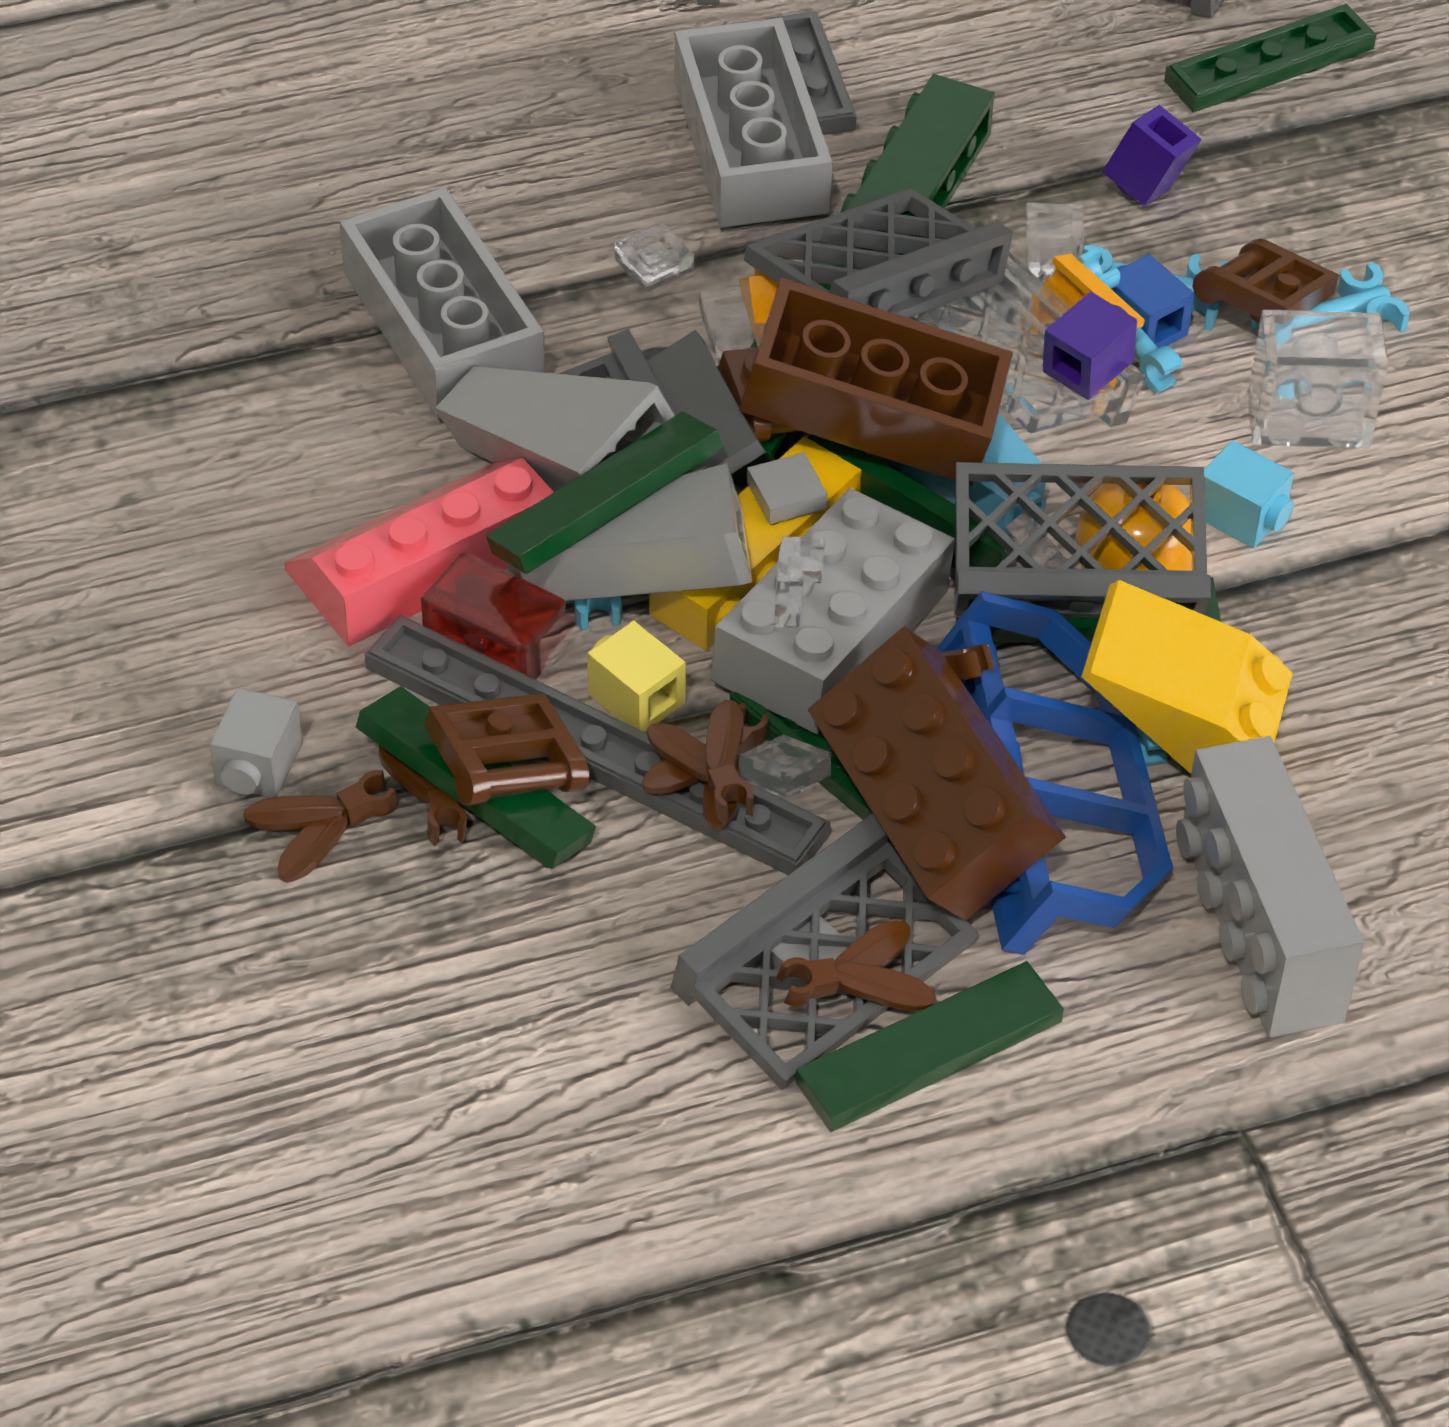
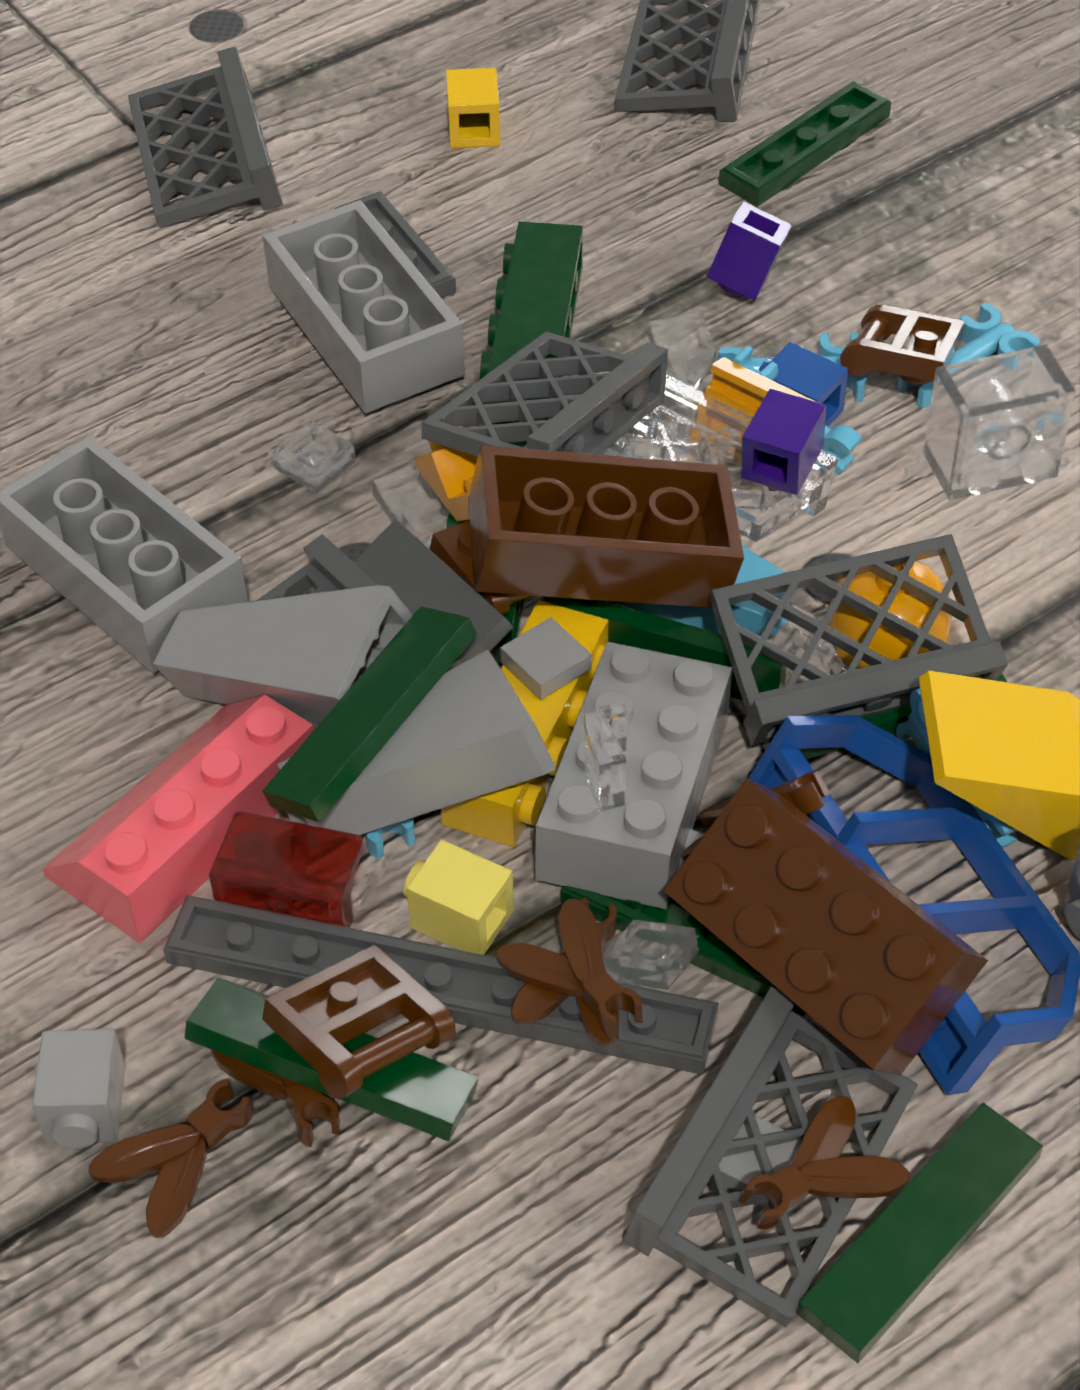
camera: 15 degrees left, 0 degrees up
(1247, 494) = (984, 545): medium azure brick -> none

